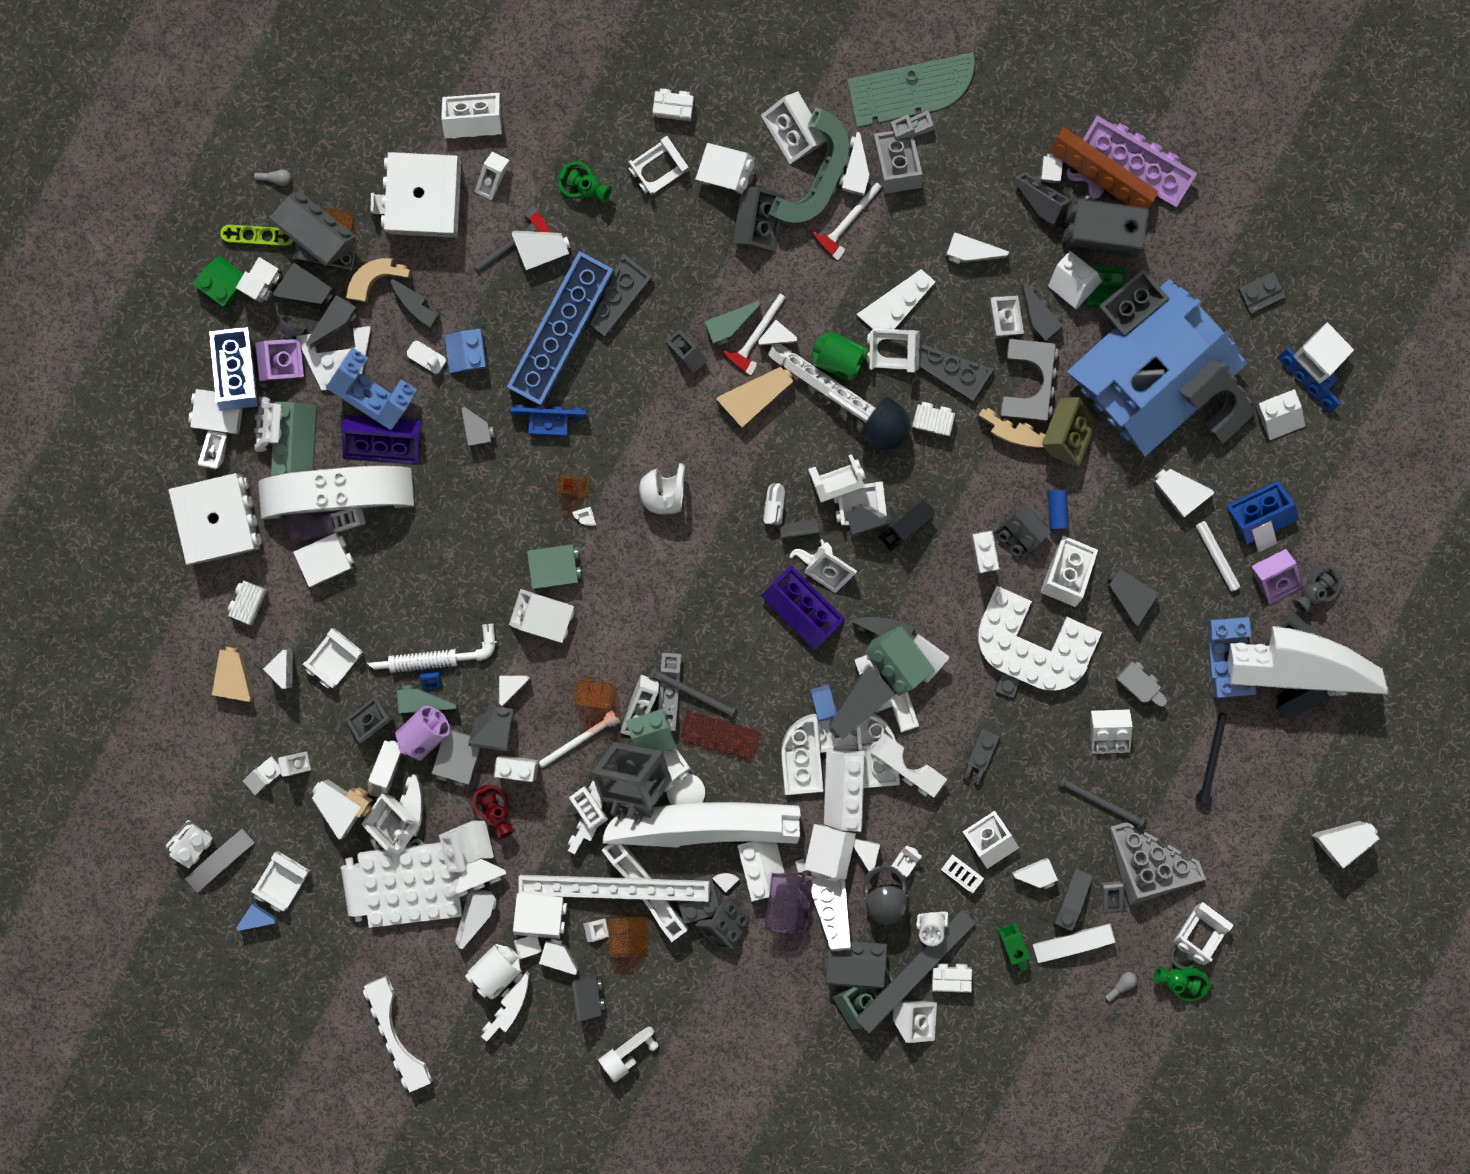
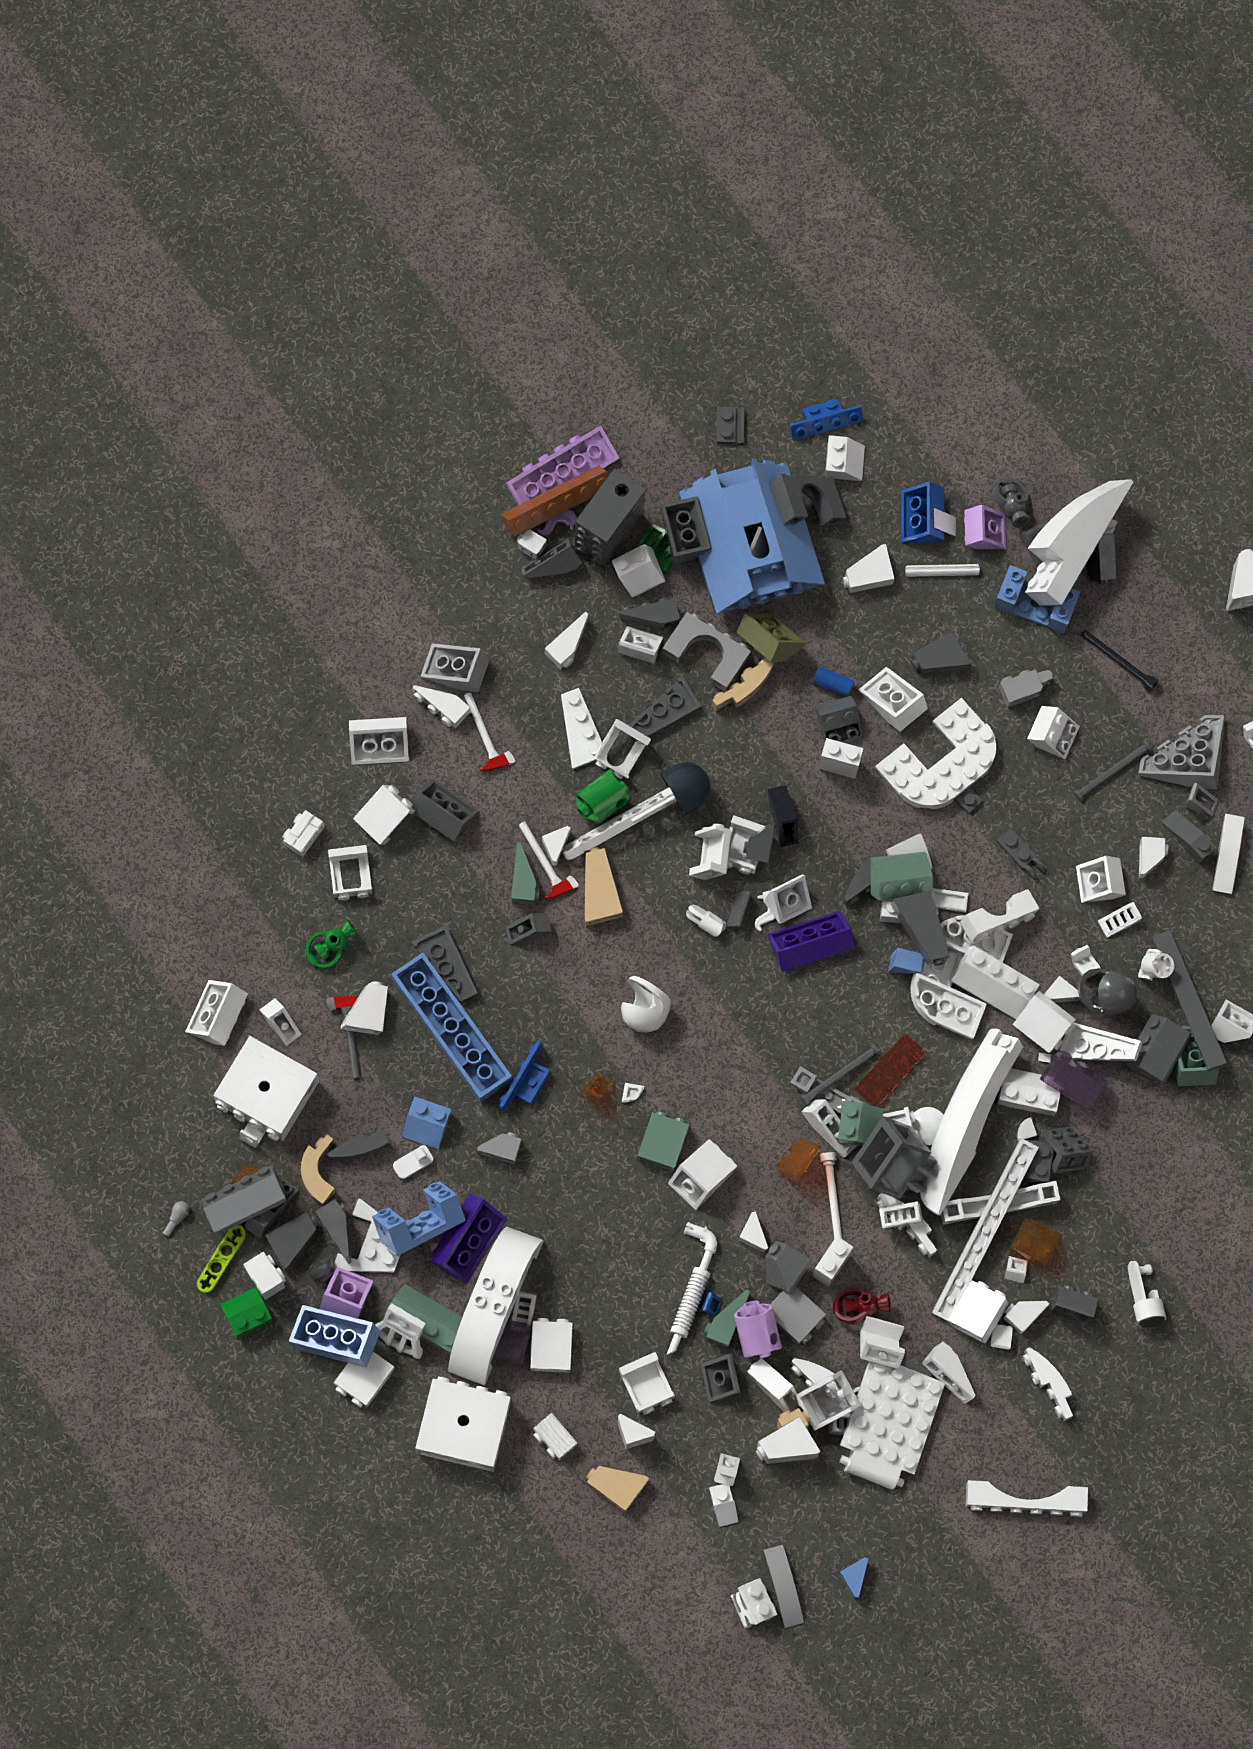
camera: 70 degrees left, 15 degrees down
(213, 450) = (397, 1395): white slope -> none
(280, 882) = (831, 1537): white panel -> none
(474, 877) = (915, 1349): white slope -> none
(495, 971) = (1010, 1375): white cylinder -> none
(827, 176) = (436, 731): sand green arch -> none
(901, 90) = (395, 633): sand green door -> none
(910, 127) = (432, 639): light grey slope -> none
(933, 419) = (700, 747): white brick -> none
(951, 978) = (1211, 973): white brick -> none
(1014, 943) = (1207, 904): green torso -> none
(1323, 353) = (809, 398): white brick -> none

